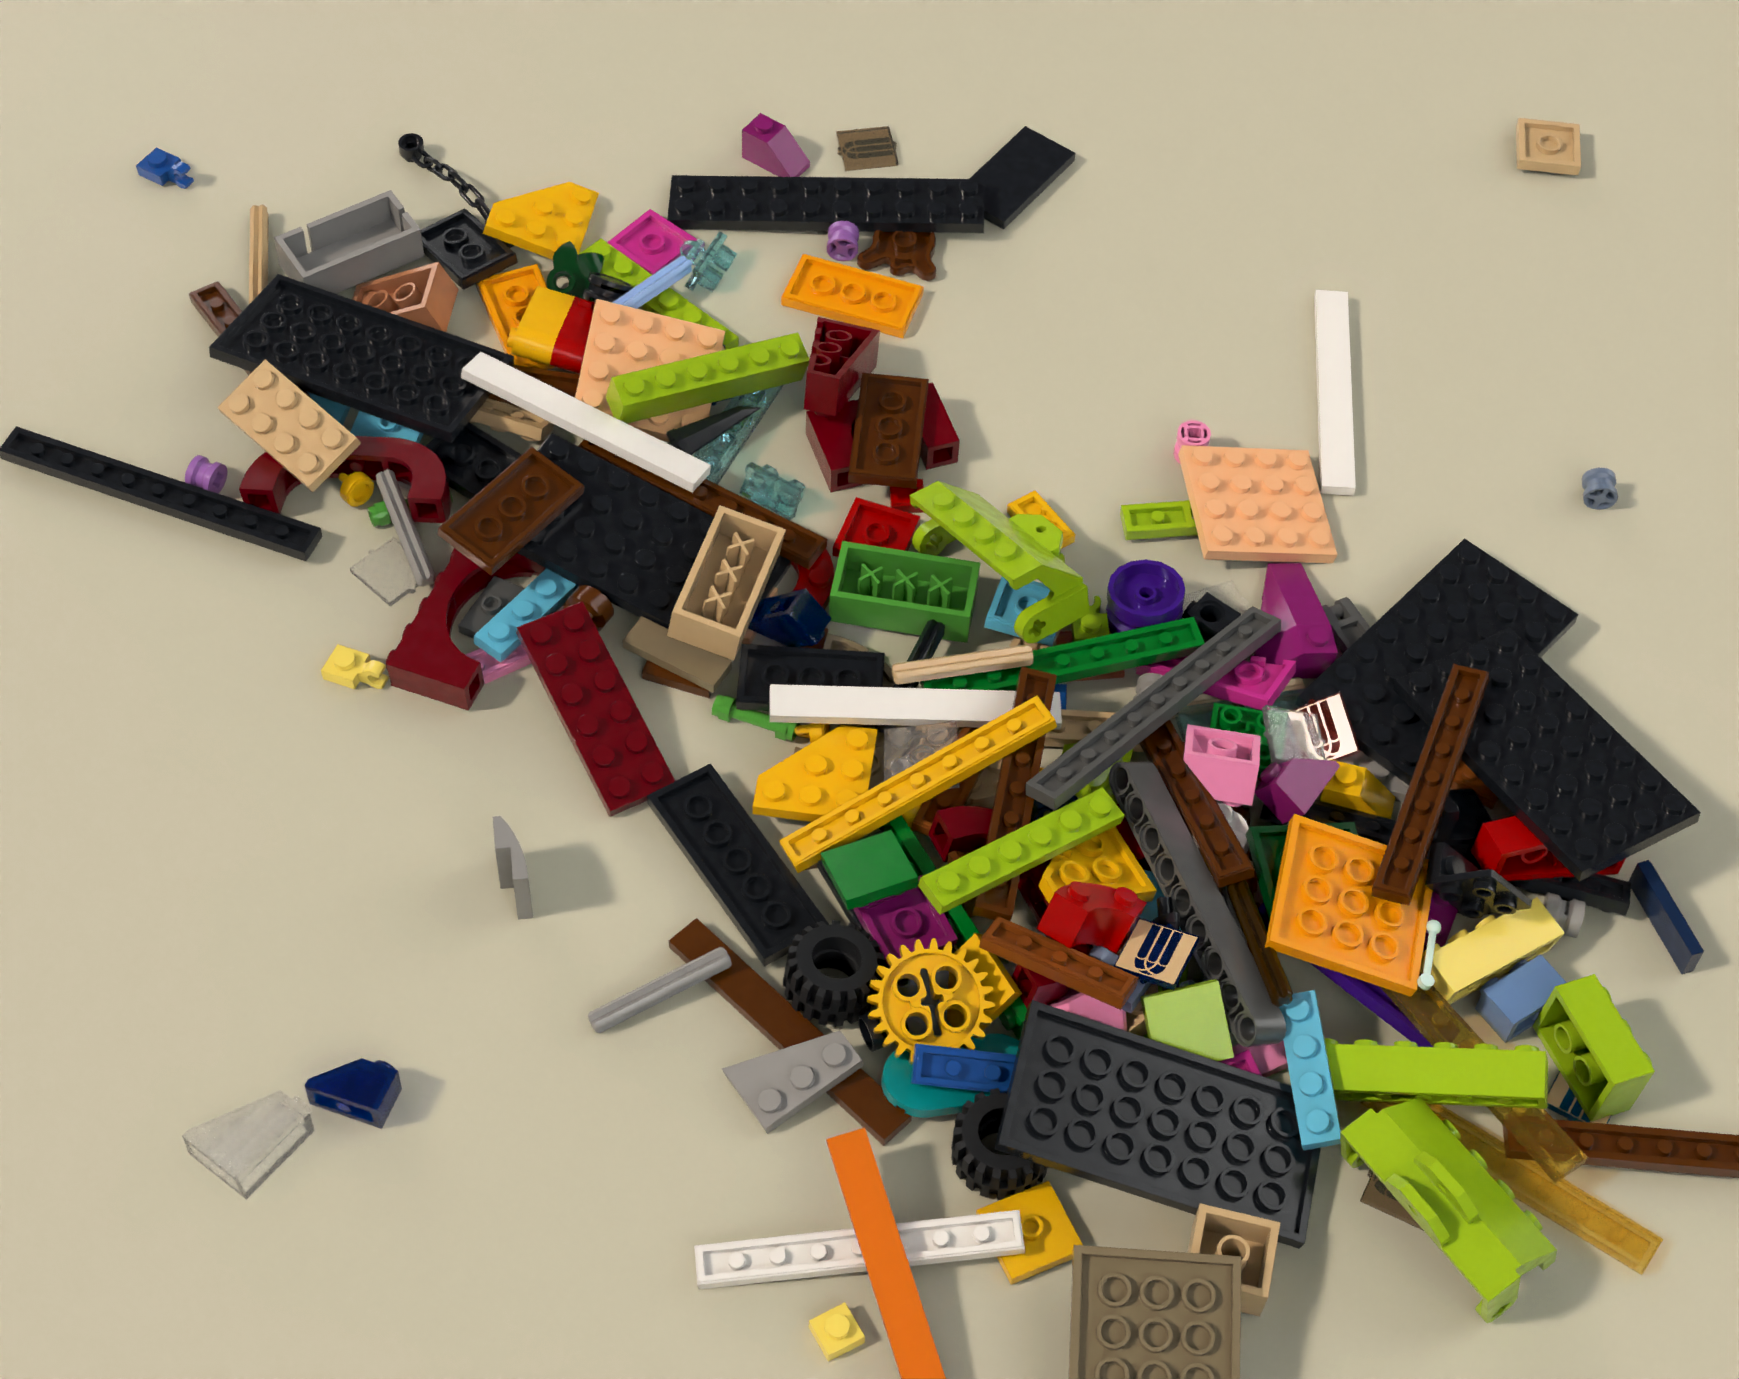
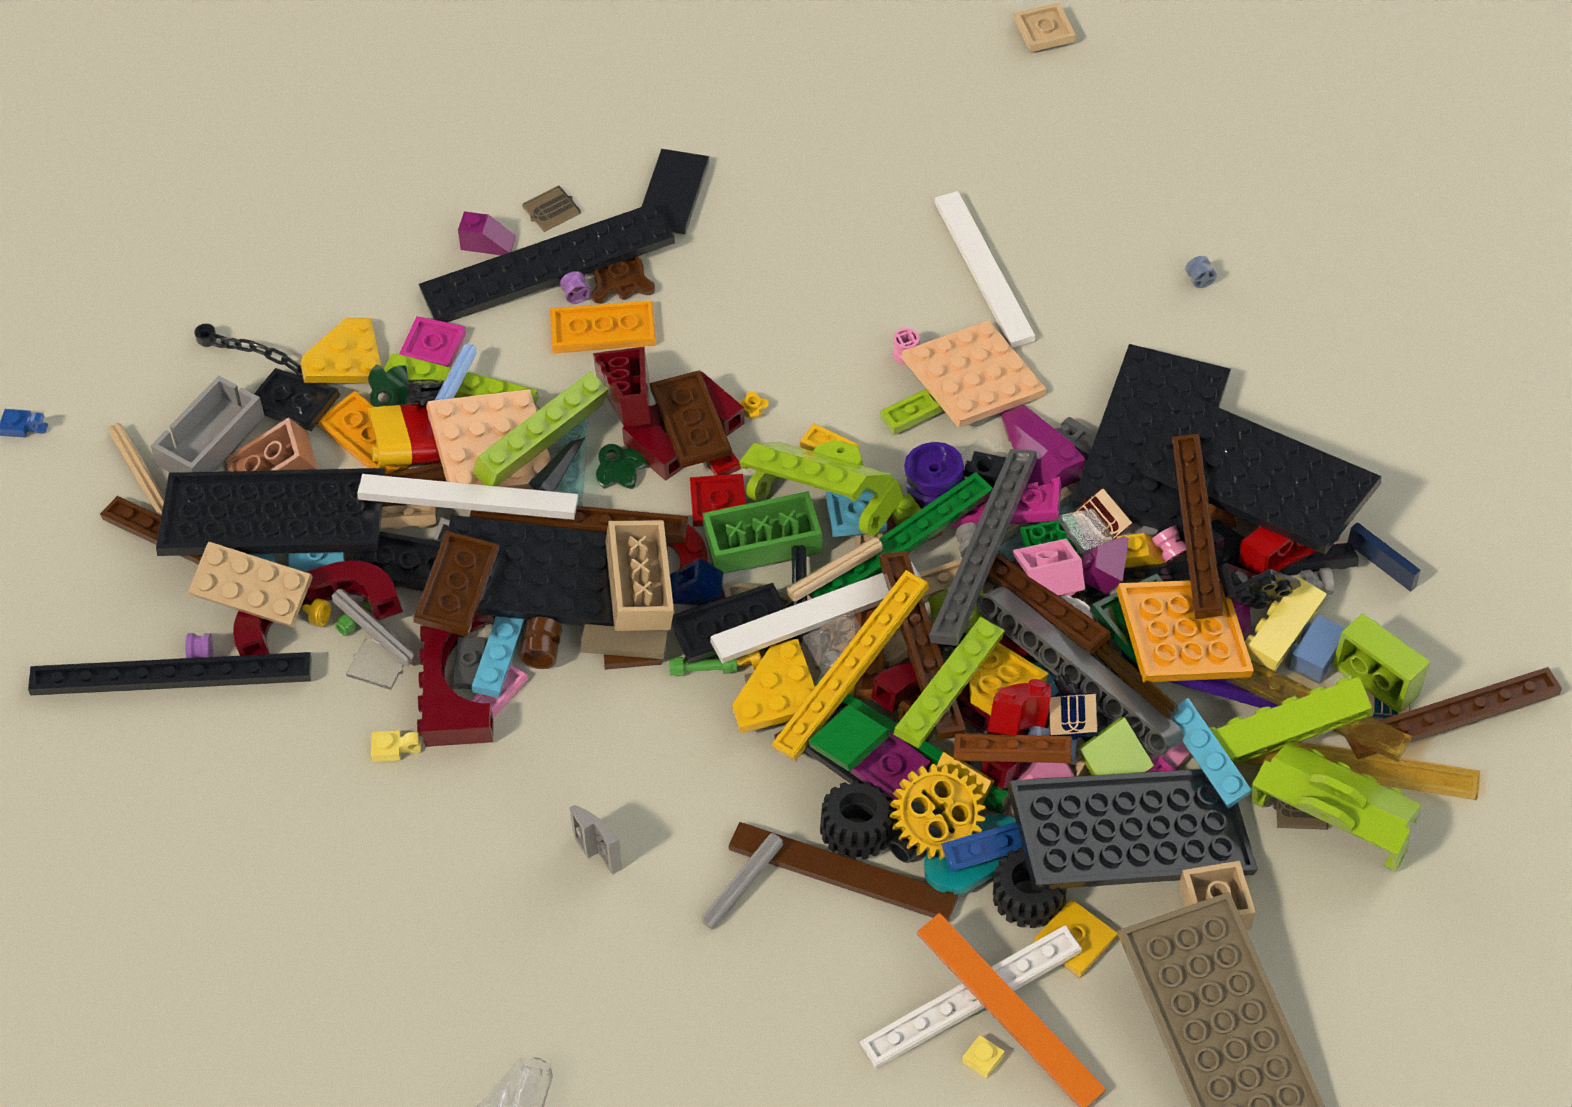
camera: 20 degrees left, 0 degrees up
(357, 1091) = (570, 1037): clear blue slope -> none
(595, 707) = (589, 703): dark red plate -> none
(702, 259) = (481, 338): clear light blue hips -> none
(735, 862) = (746, 772): black plate -> none
(771, 491) = (625, 496): clear light blue hips -> none
(788, 456) = (620, 469): none -> dark green plate
(793, 1077) = (865, 902): light grey wing -> none
(976, 444) = (753, 405): none -> yellow plate
(1392, 792) = (1170, 543): none -> bright pink wheel
(1426, 980) = (1257, 661): light aqua hinge -> none

